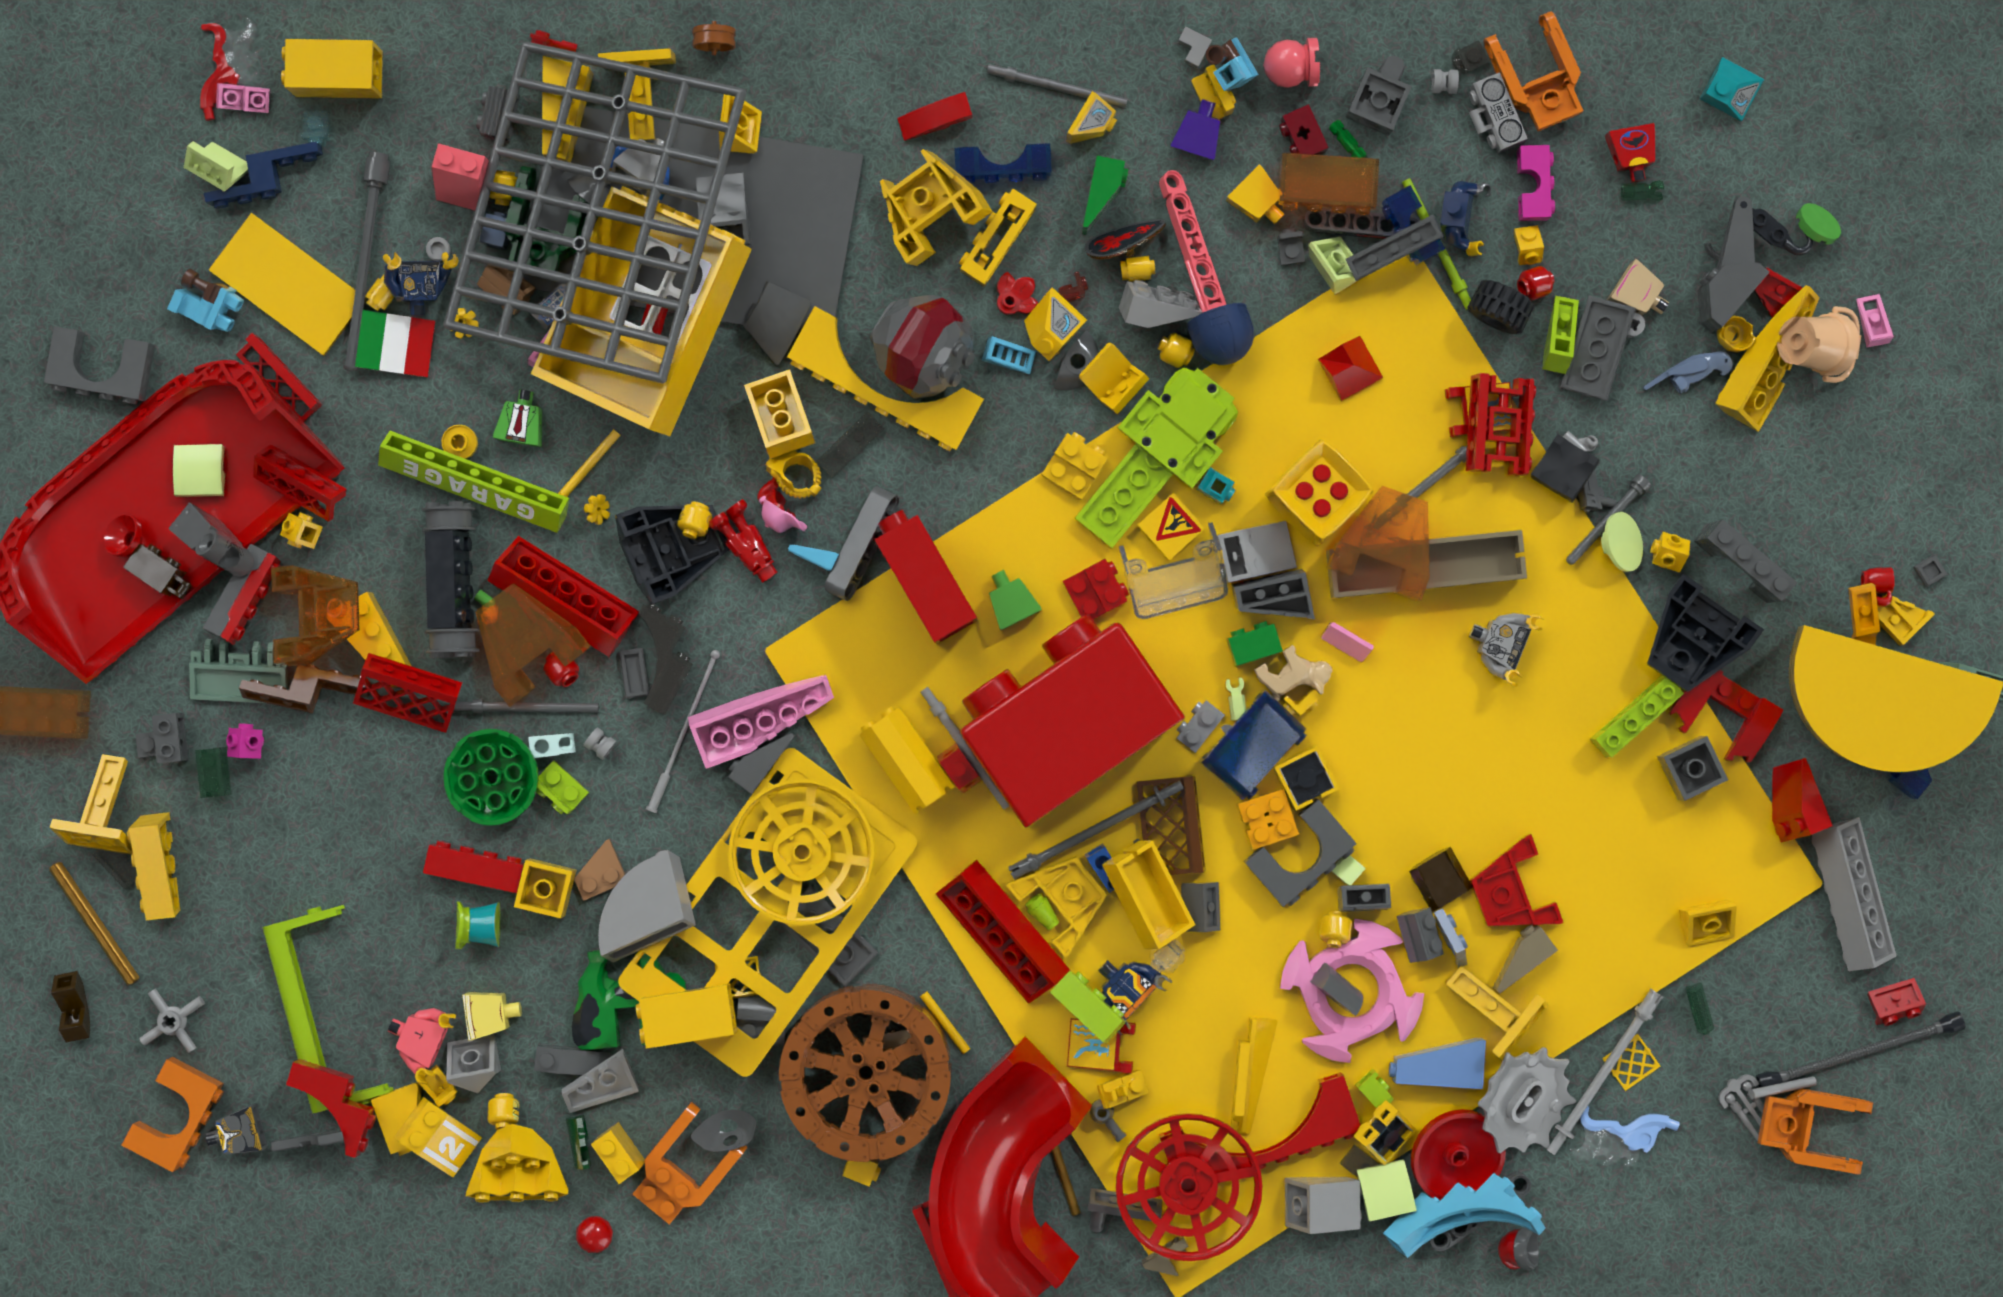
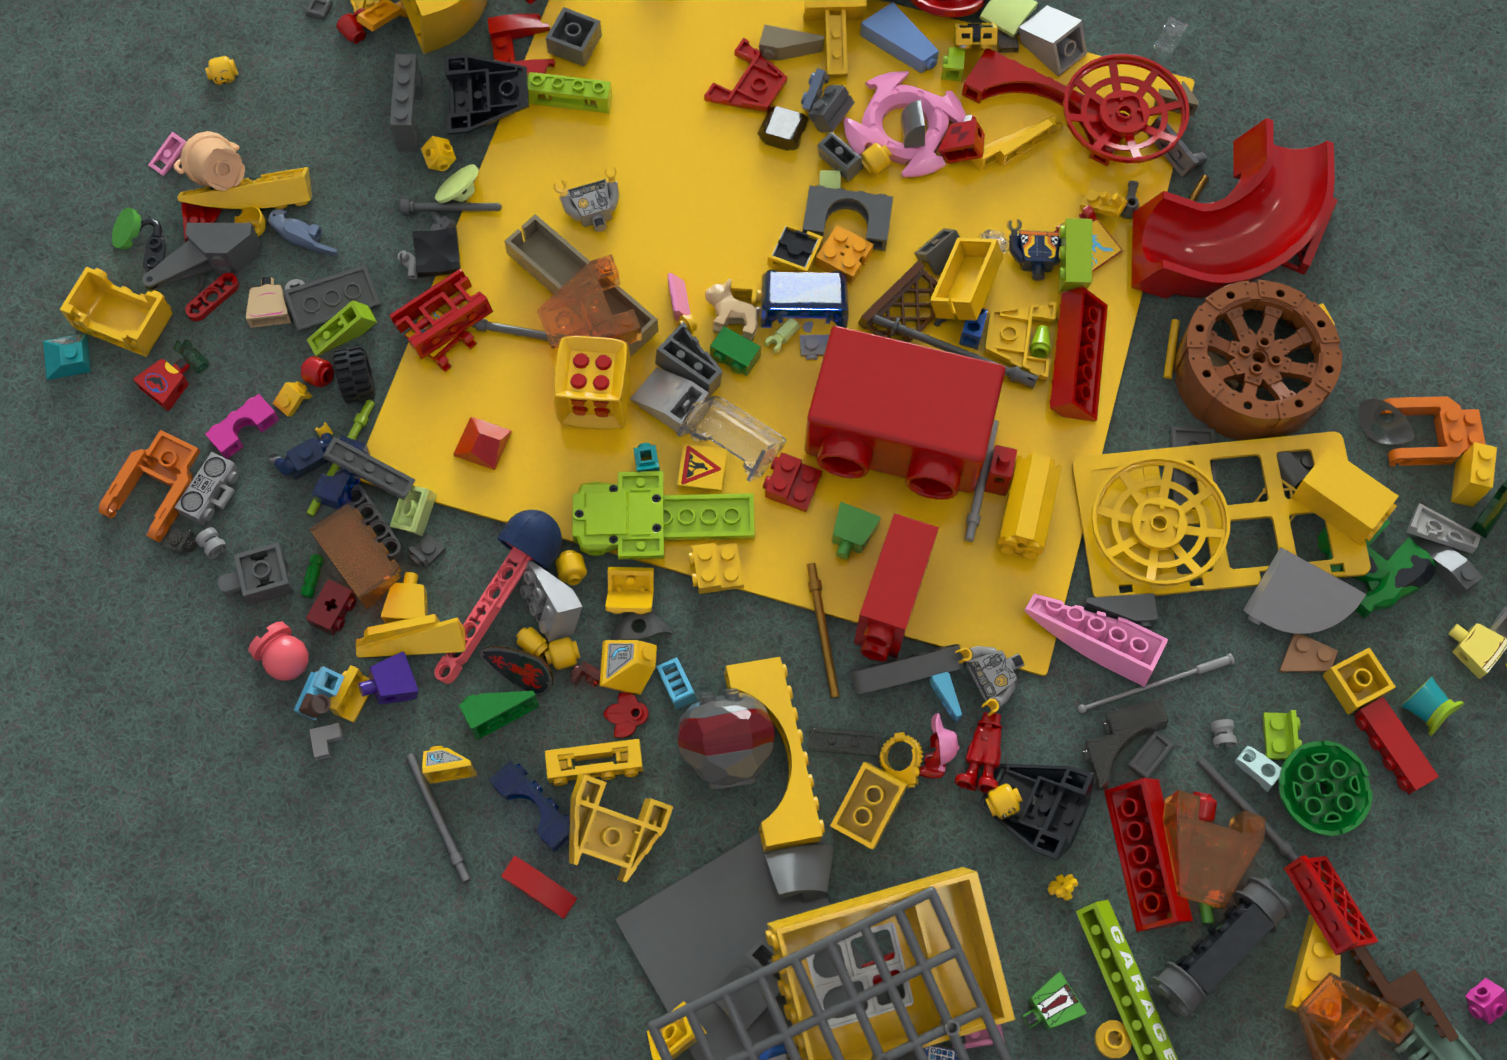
camera: 135 degrees left, 20 degrees down
(589, 463) = (1036, 925): yellow bar -> none
(799, 604) = (992, 673): none -> torso
(990, 529) = (815, 587): none -> pearl gold bar
(1107, 284) = (562, 653): none -> yellow head
(1219, 177) = (412, 637): none -> yellow wedge
(1286, 1022) = (963, 141): none -> red torso
(1314, 626) = (689, 321): none -> yellow plate
(1680, 233) = (212, 288): none -> red beam
(1734, 157) = (116, 312): none -> yellow windscreen
(1928, 430) = (221, 70): none -> yellow head

